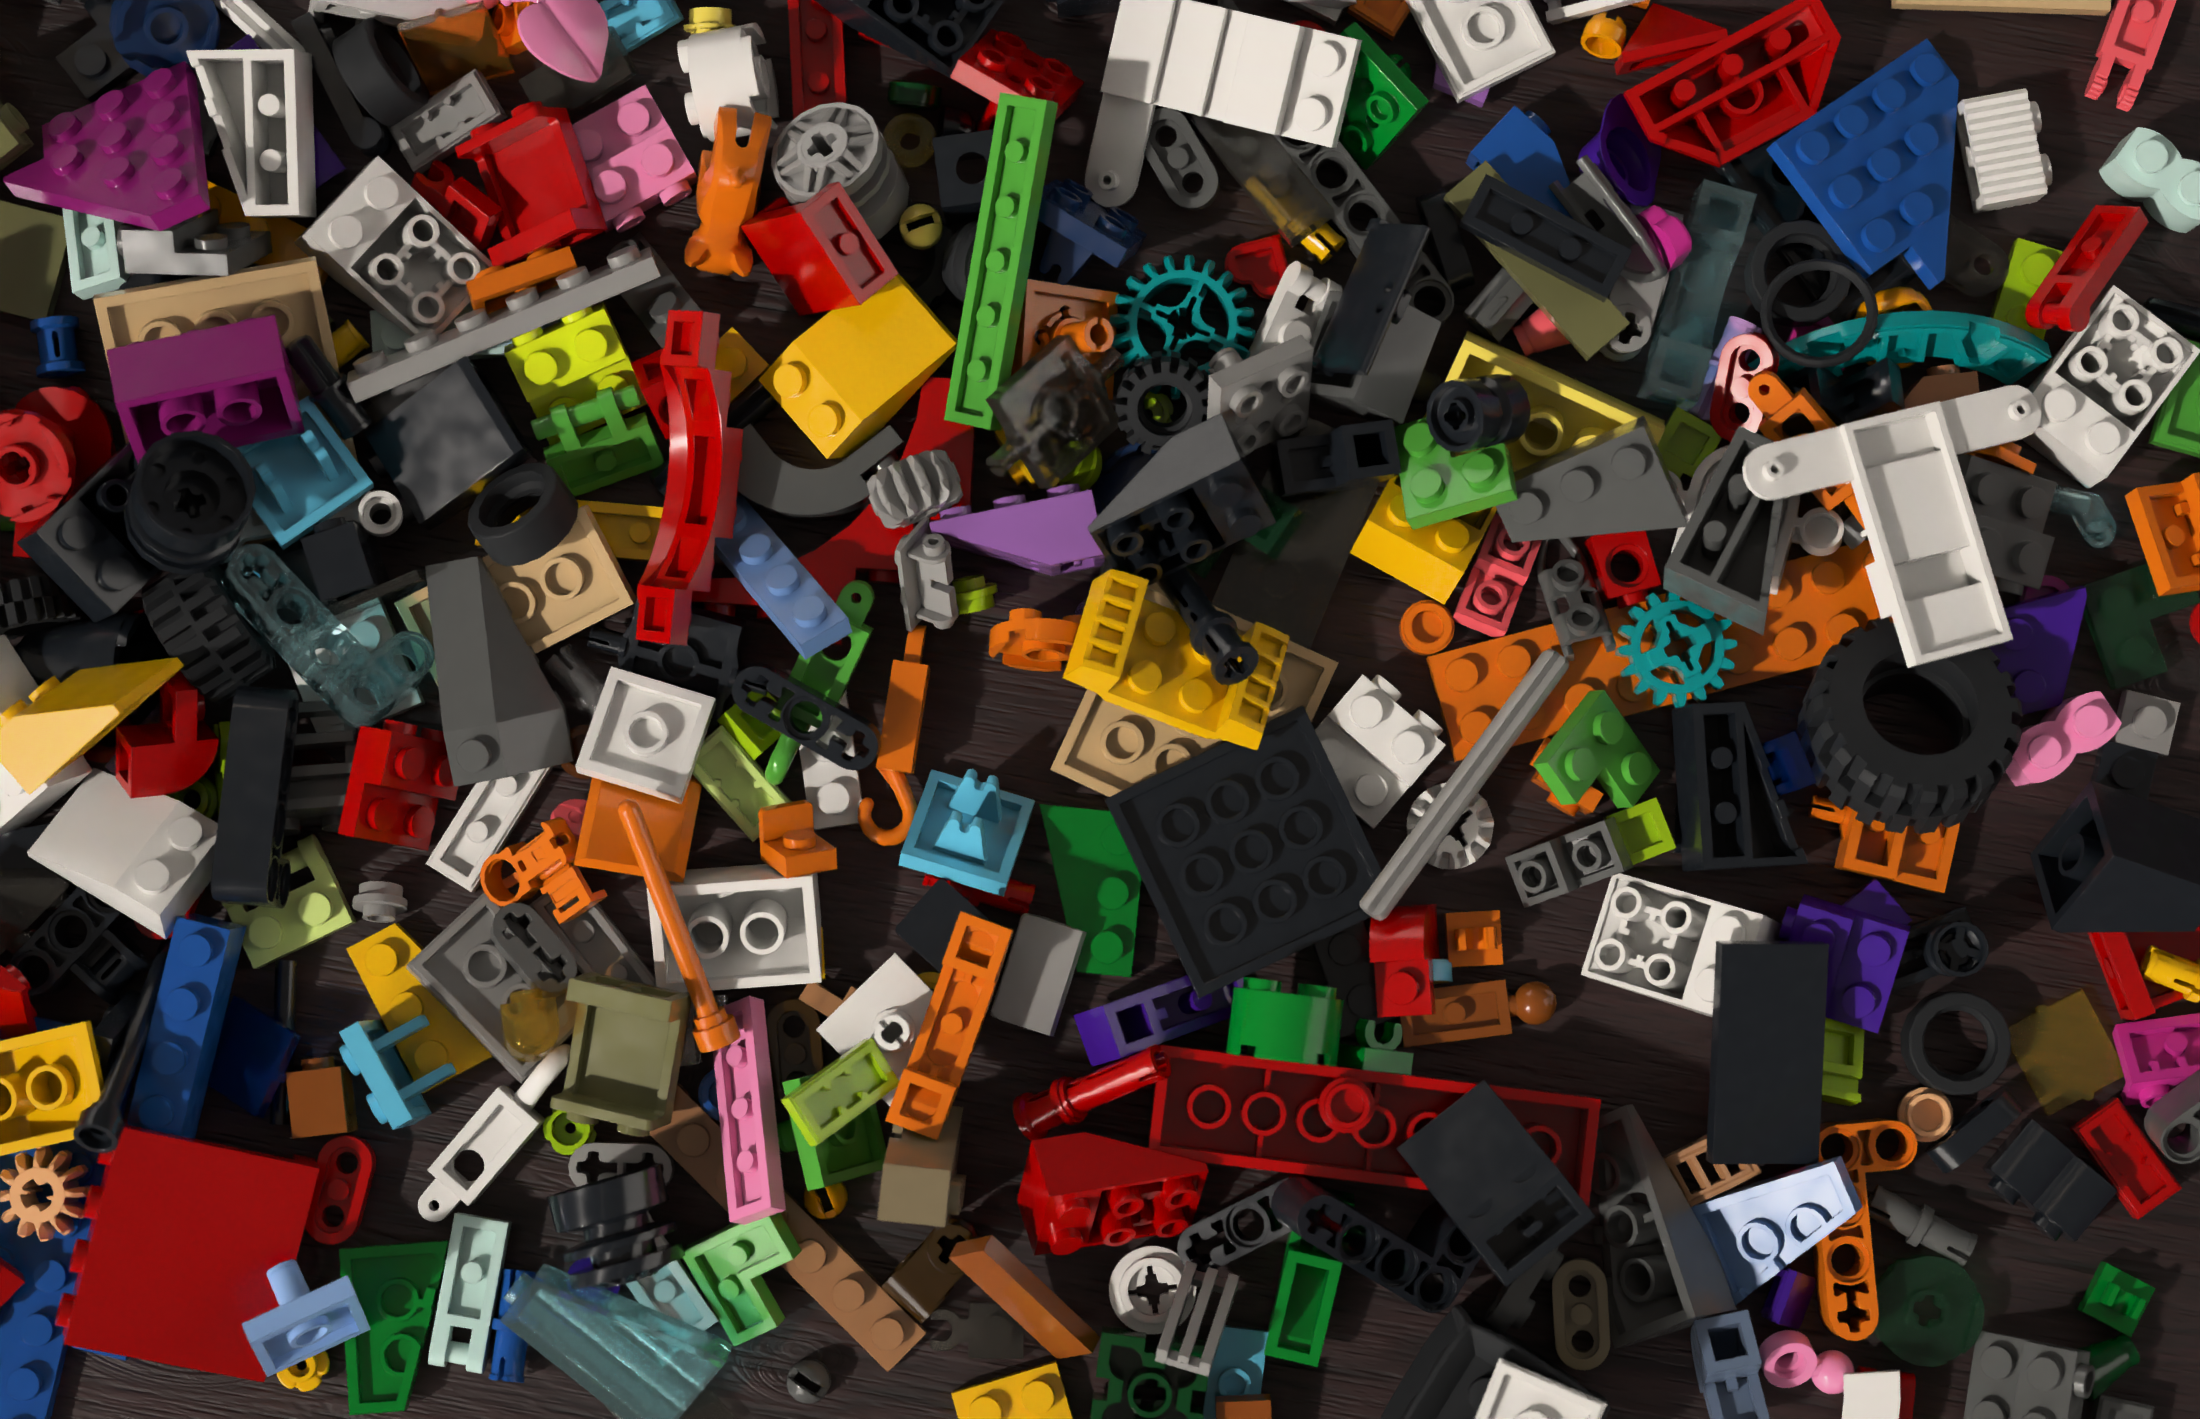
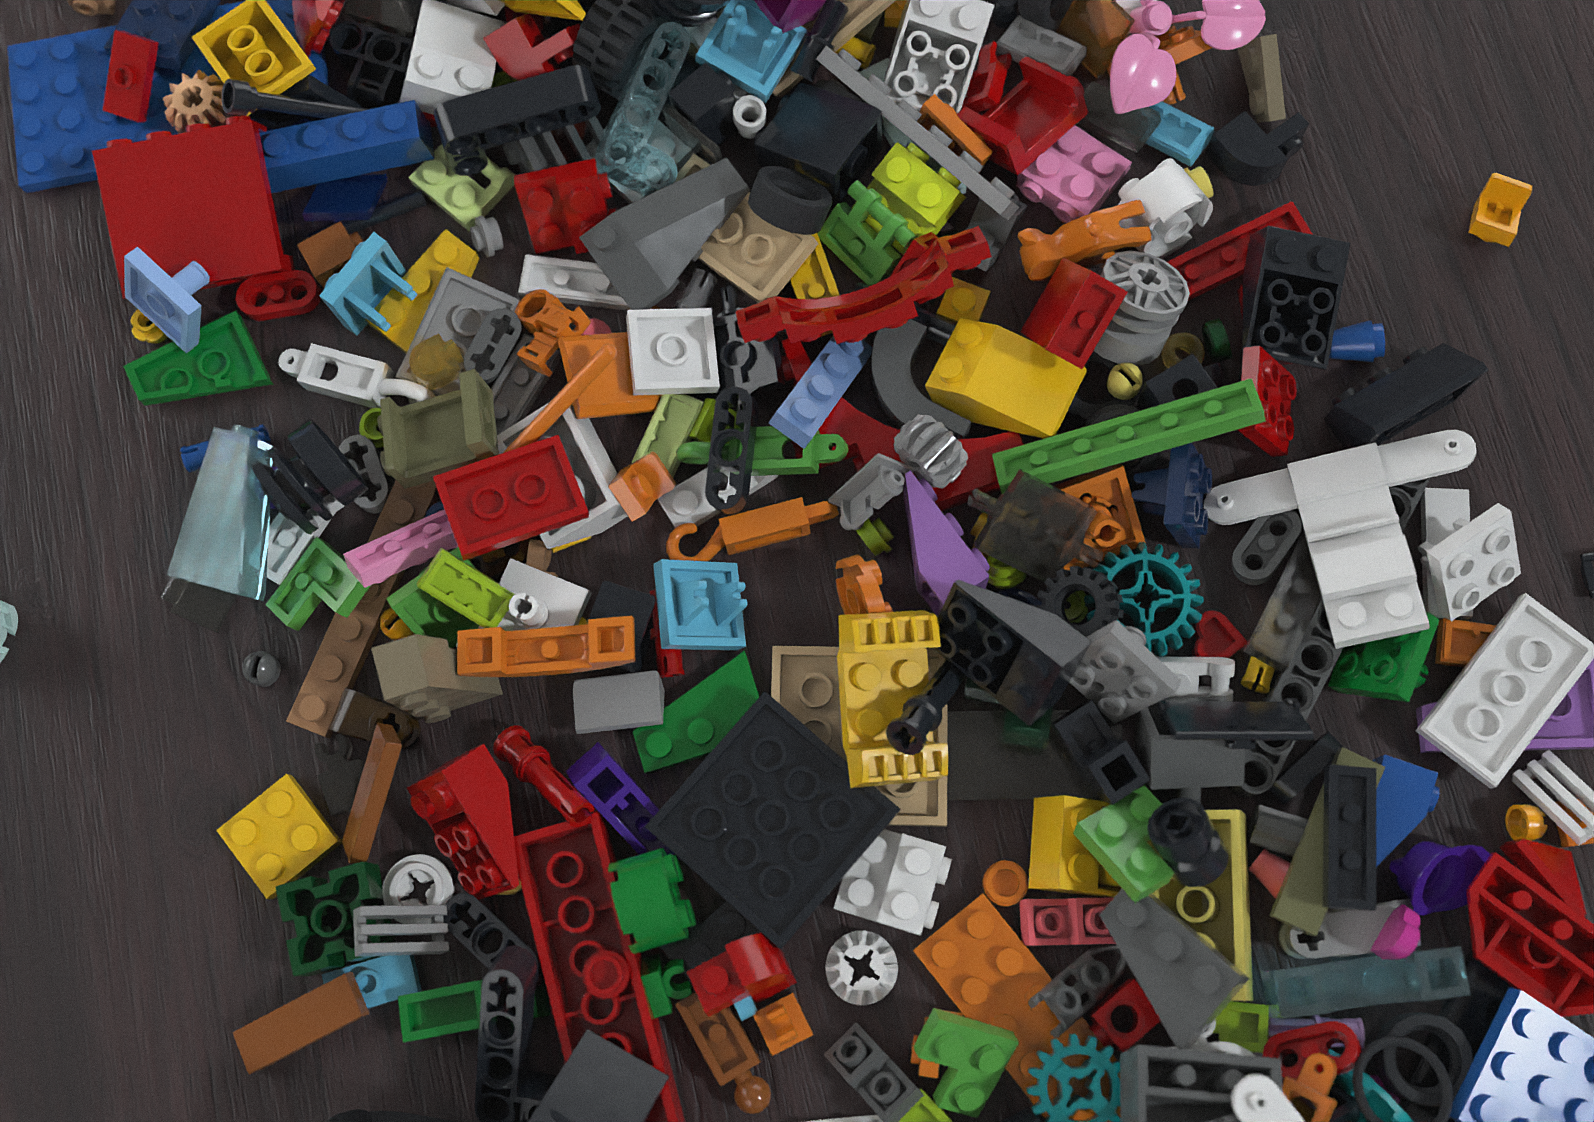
camera: 75 degrees right, 10 degrees down
(469, 1290) = (245, 405): light aqua plate -> none
(752, 995) = (511, 497): none -> red plate
(1464, 785) = (896, 961): light grey axle -> none
(1595, 192) = (1390, 895): dark grey piece -> none

